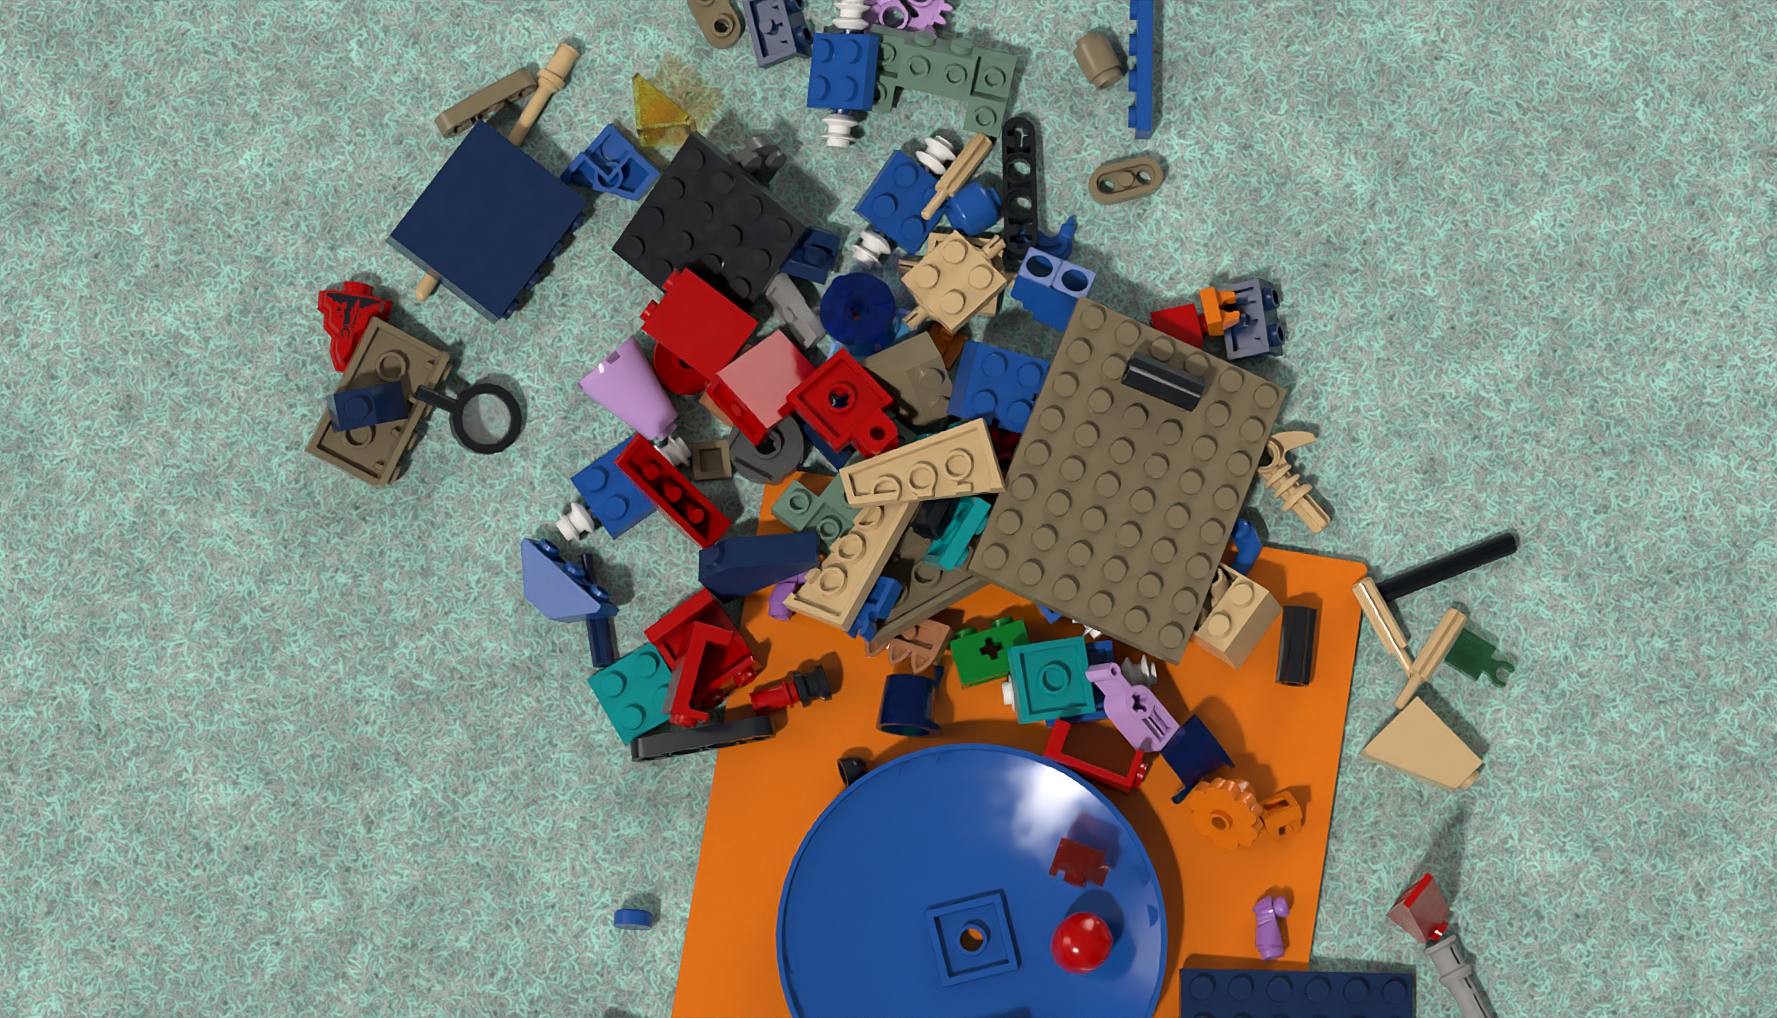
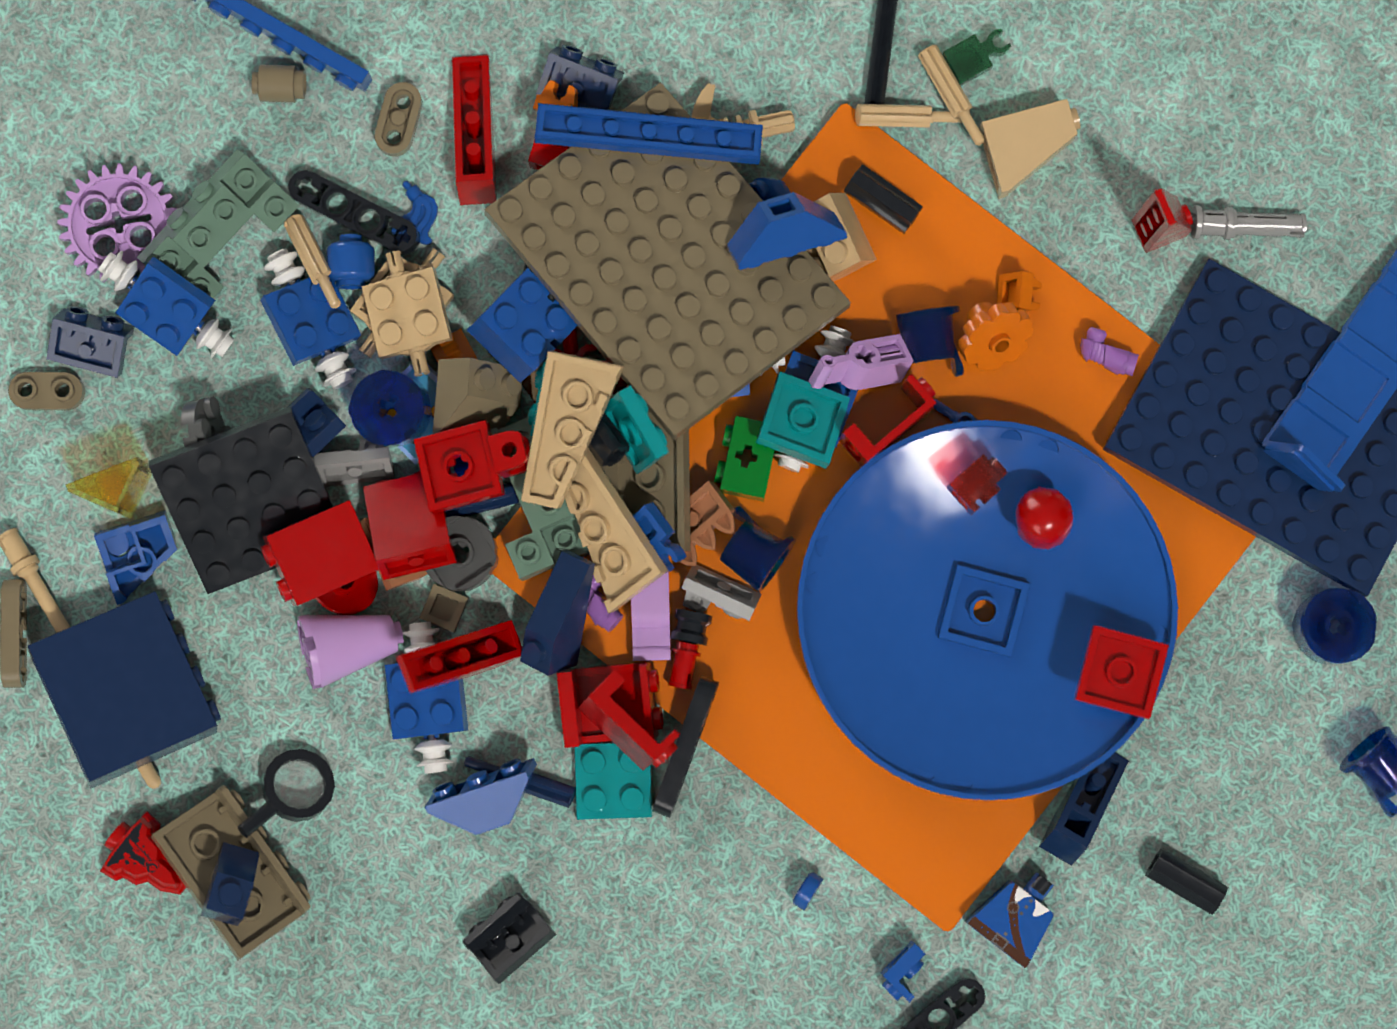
camera: 65 degrees left, 5 degrees up
(450, 676) = (508, 937): none -> black bracket
(799, 647) = (651, 622): none -> lavender piece
(851, 768) = (783, 632): black hinge -> none
(856, 679) = (706, 587): none -> light grey hinge
(1051, 287) = (460, 232): blue piece -> none
(1134, 818) = (953, 415): none -> blue hand
(1154, 250) = (473, 130): none -> red slope
(1163, 381) = (601, 180): black axle -> none
(1209, 565) = (783, 229): none -> blue slope
(1231, 402) = (648, 133): none -> blue tile

